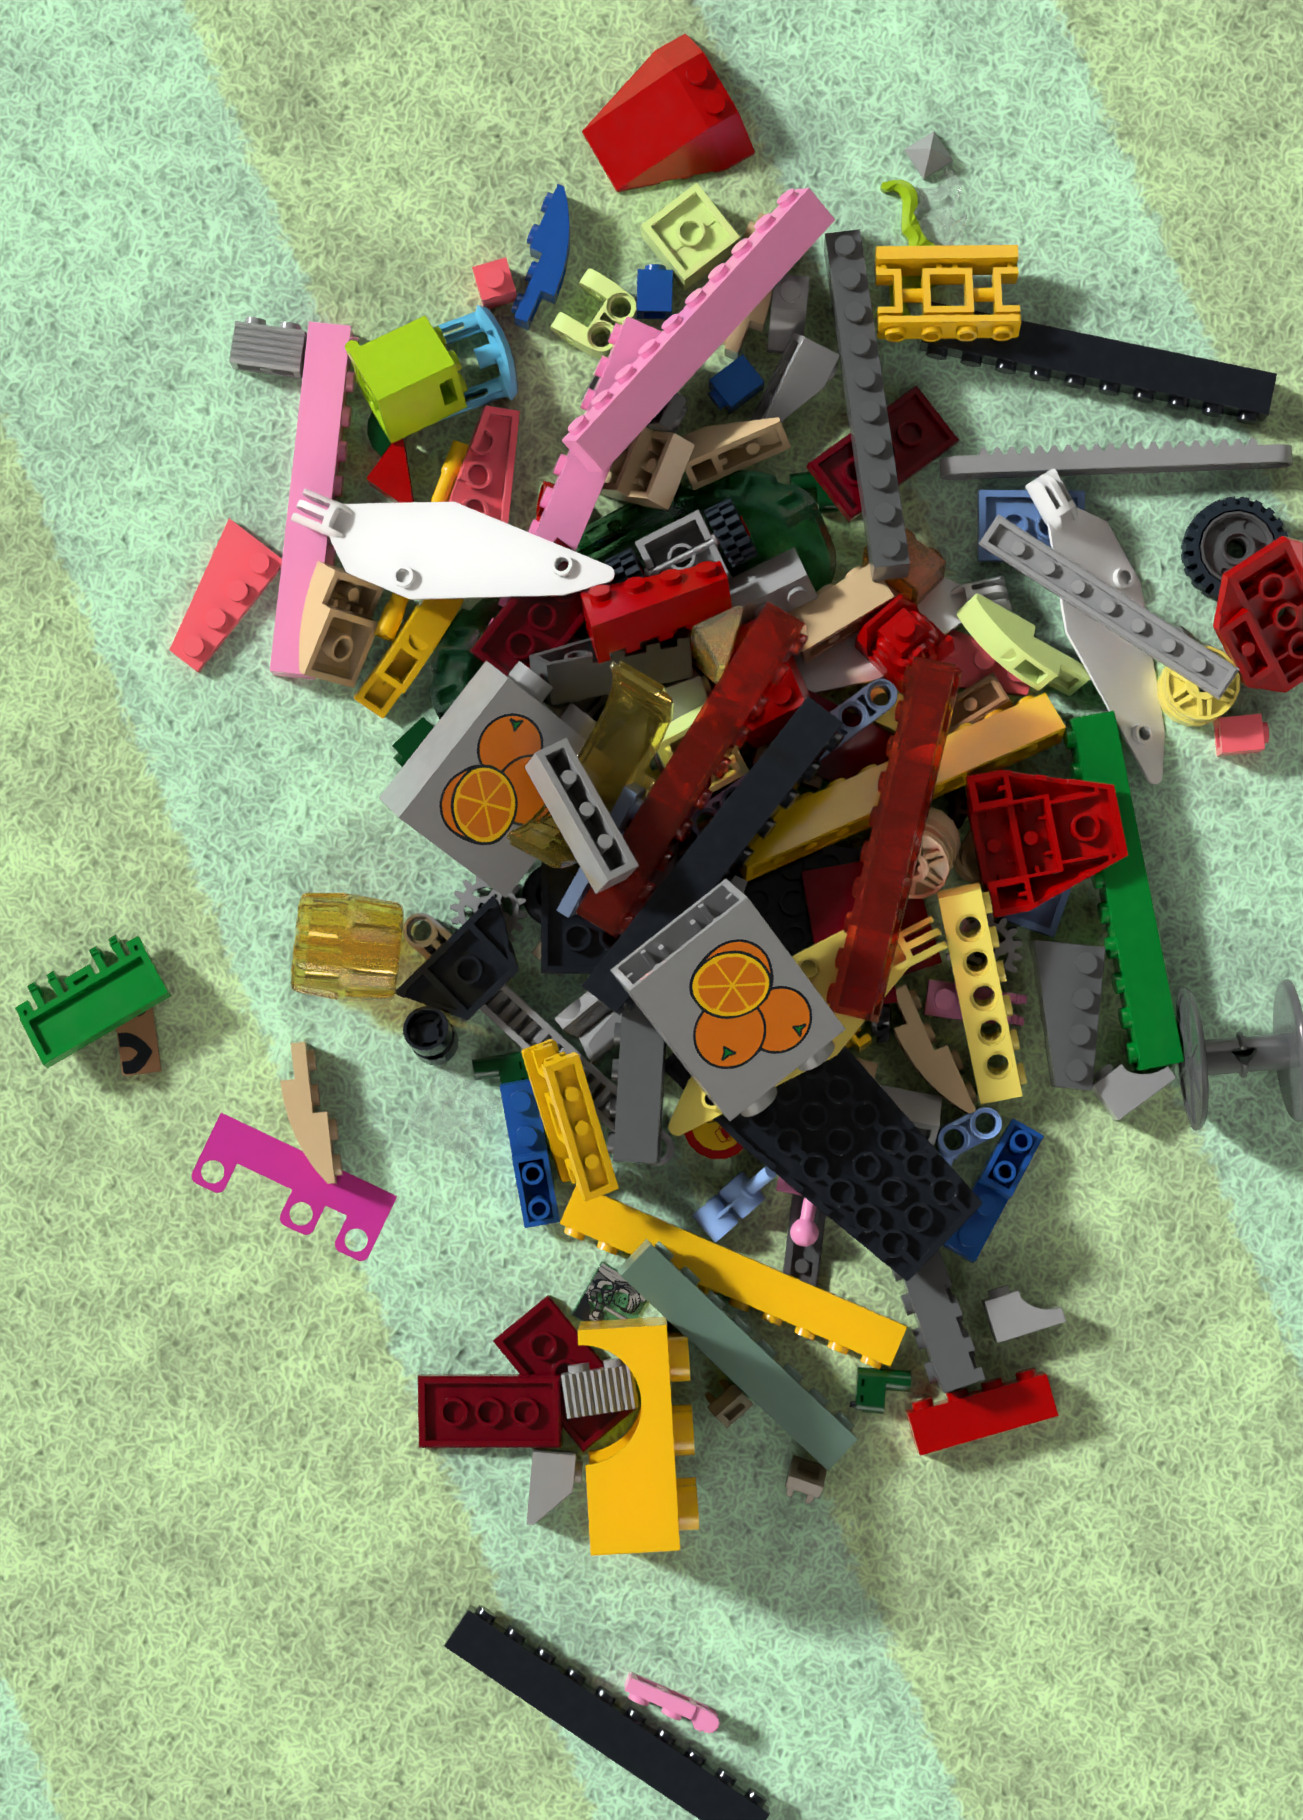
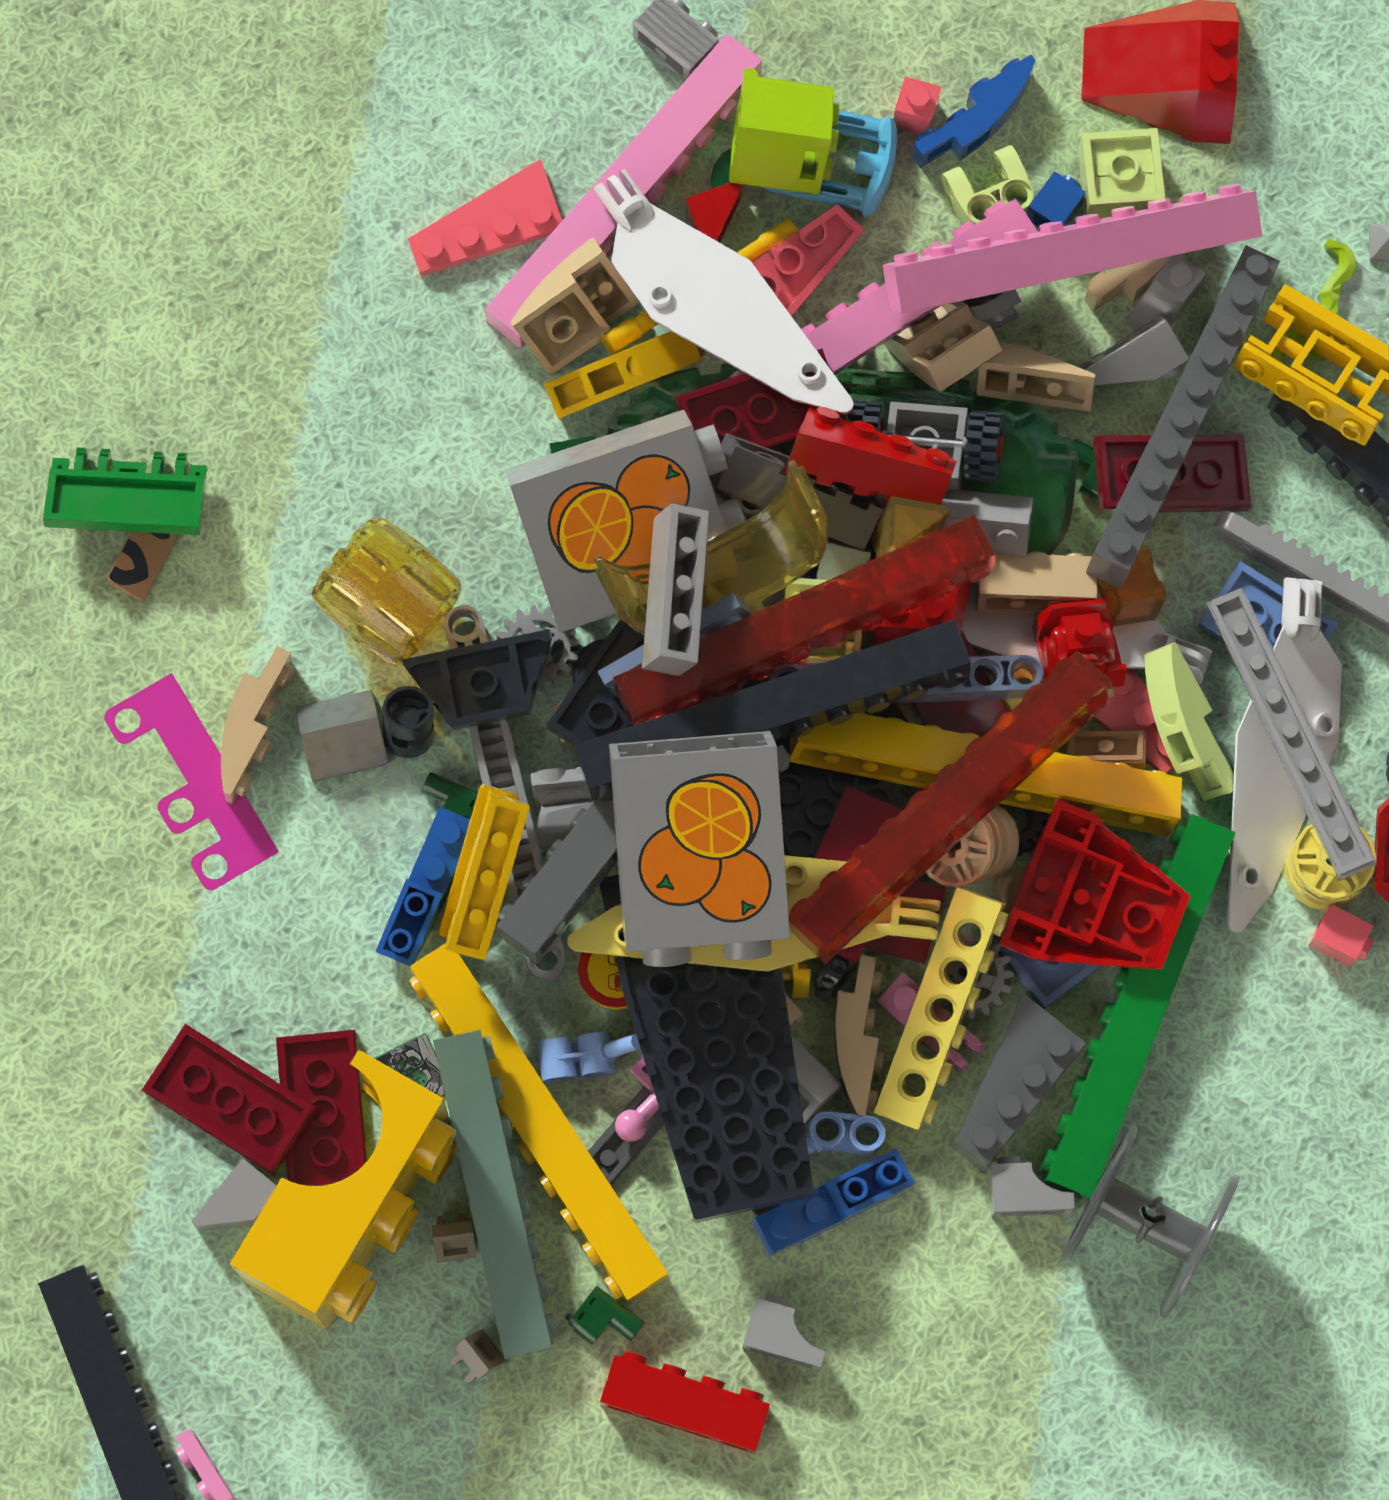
camera: 30 degrees right, 10 degrees down
(384, 1076) = (341, 735): none -> flat silver slope
(599, 1389) = (338, 1139): light grey brick -> none
(735, 385) = (1076, 329): blue brick -> none
(940, 1327) = (701, 1290): dark grey wedge -> none

